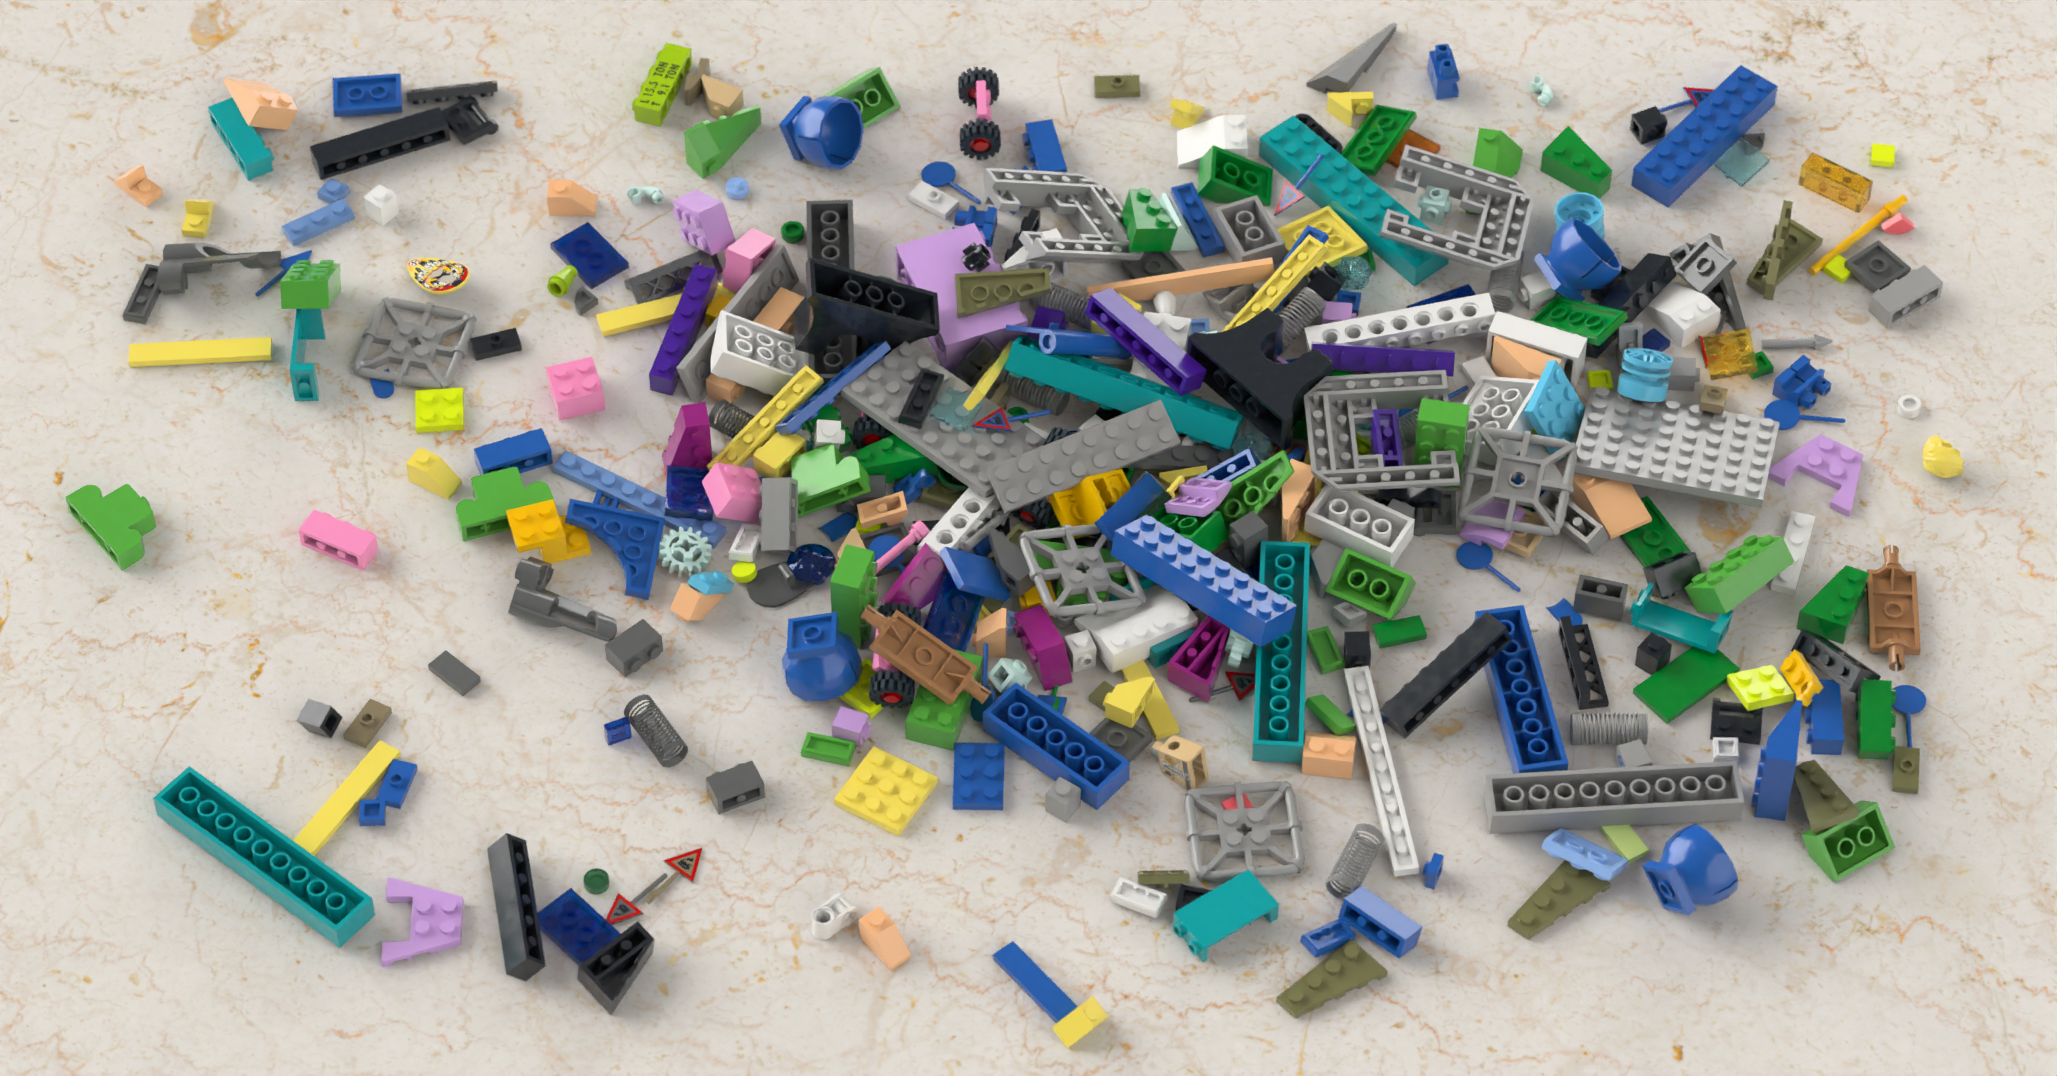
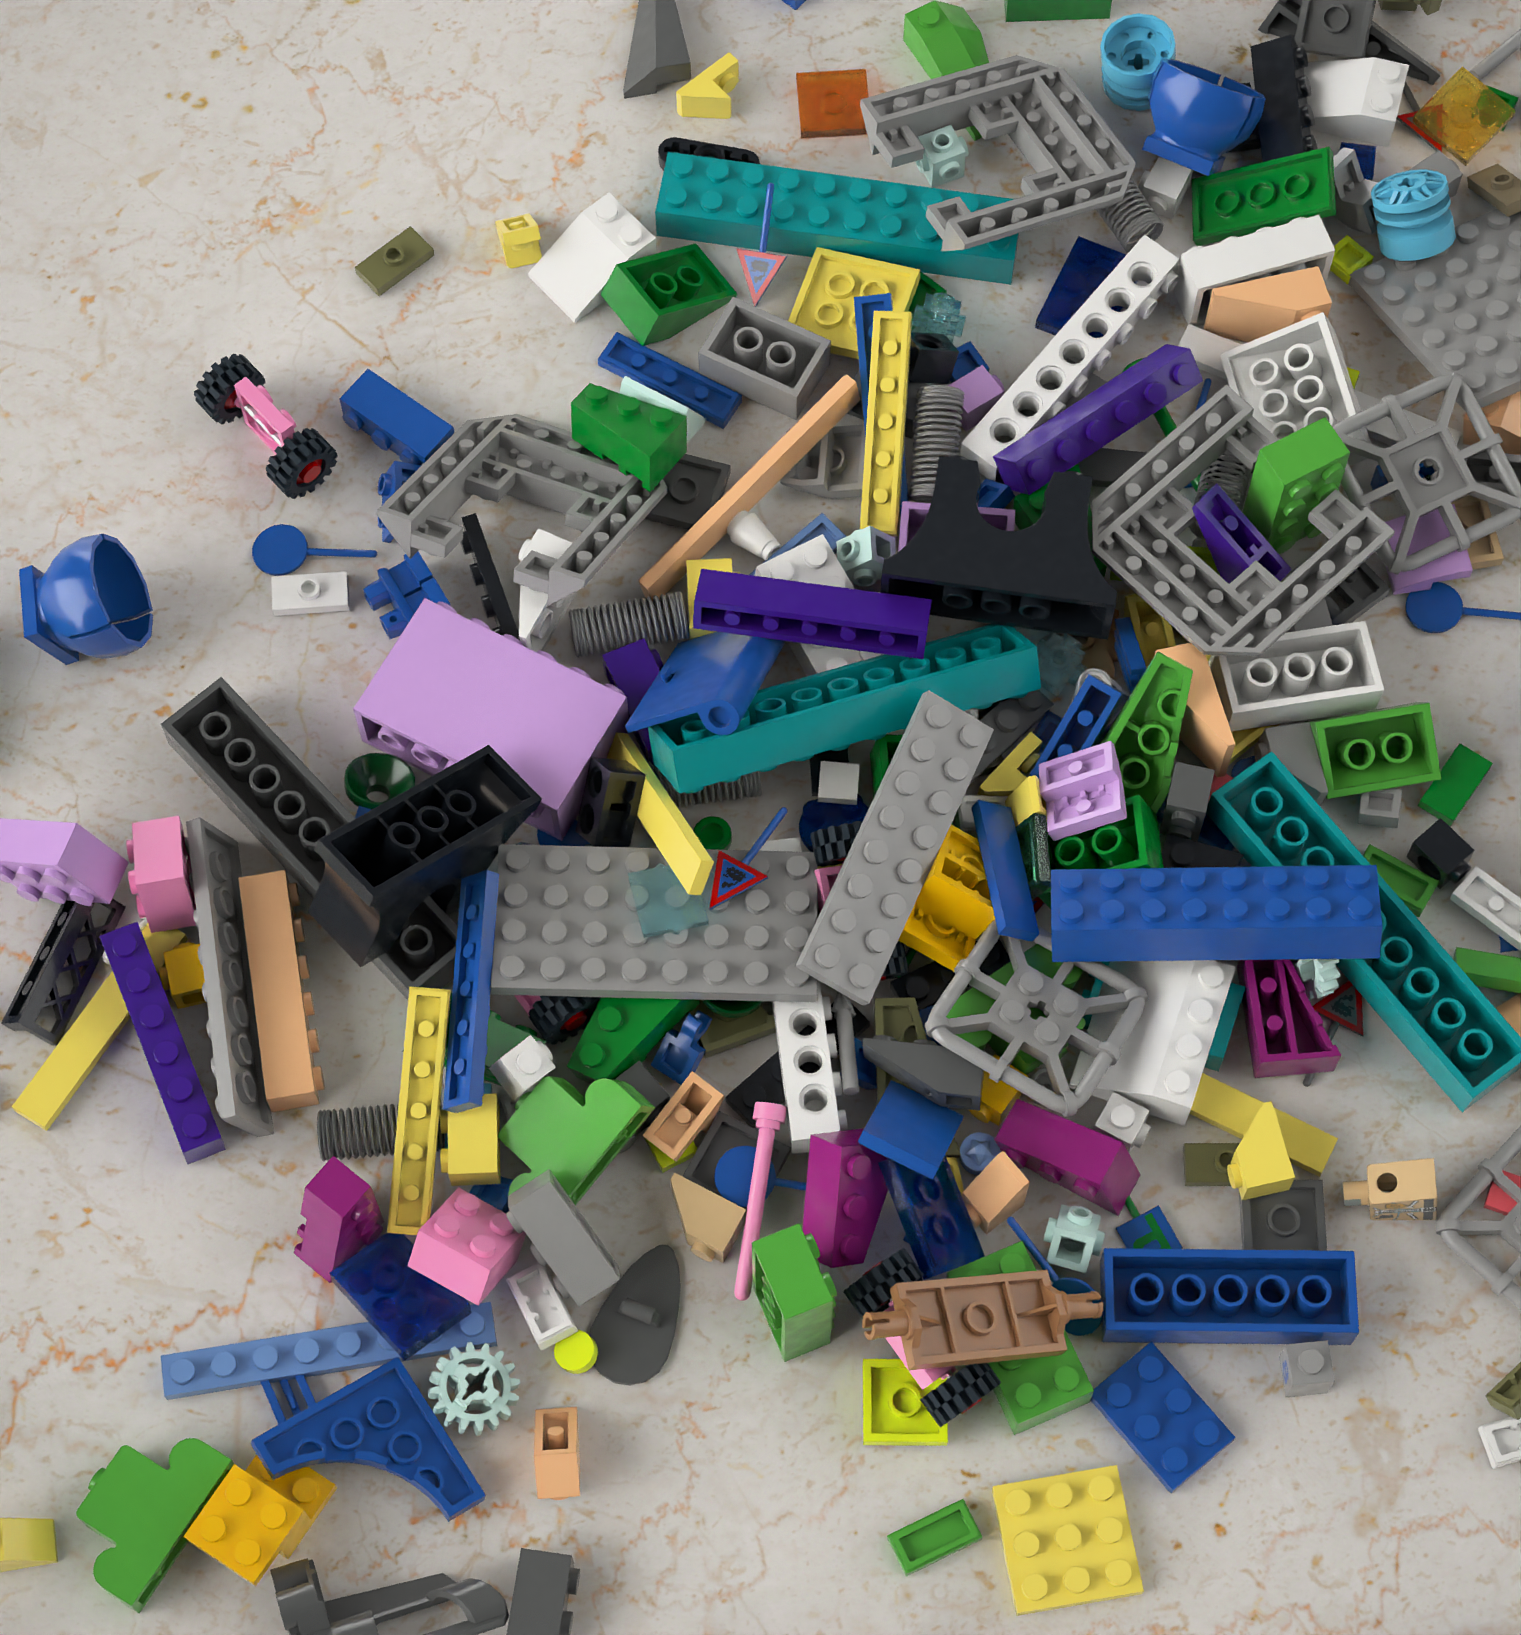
camera: 40 degrees left, 15 degrees up
(522, 451) = (94, 1423): blue brick -> none
(575, 388) = (89, 1247): bright pink brick -> none
(711, 582) = (558, 1413): medium azure plate -> none
(737, 188) = (30, 765): light blue tile -> none
(754, 354) = (312, 1012): white slope -> none
(792, 232) = (165, 776): green tile -> none
(812, 563) = (655, 1267): clear blue dish -> none
(820, 658) = (823, 1422): blue plate -> none
(839, 526) = (634, 1177): blue piece -> none
(851, 726) = (940, 1481): lavender brick -> none
(870, 94) = (79, 503): bright green slope -> none
(921, 398) = (611, 920): black tile -> none
(976, 257) = (486, 651): black gear -> none
(994, 289) = (549, 682): olive wing -> none
(1378, 138) = (785, 111): green tile -> none
(1555, 406) = (1363, 338): medium azure plate -> none

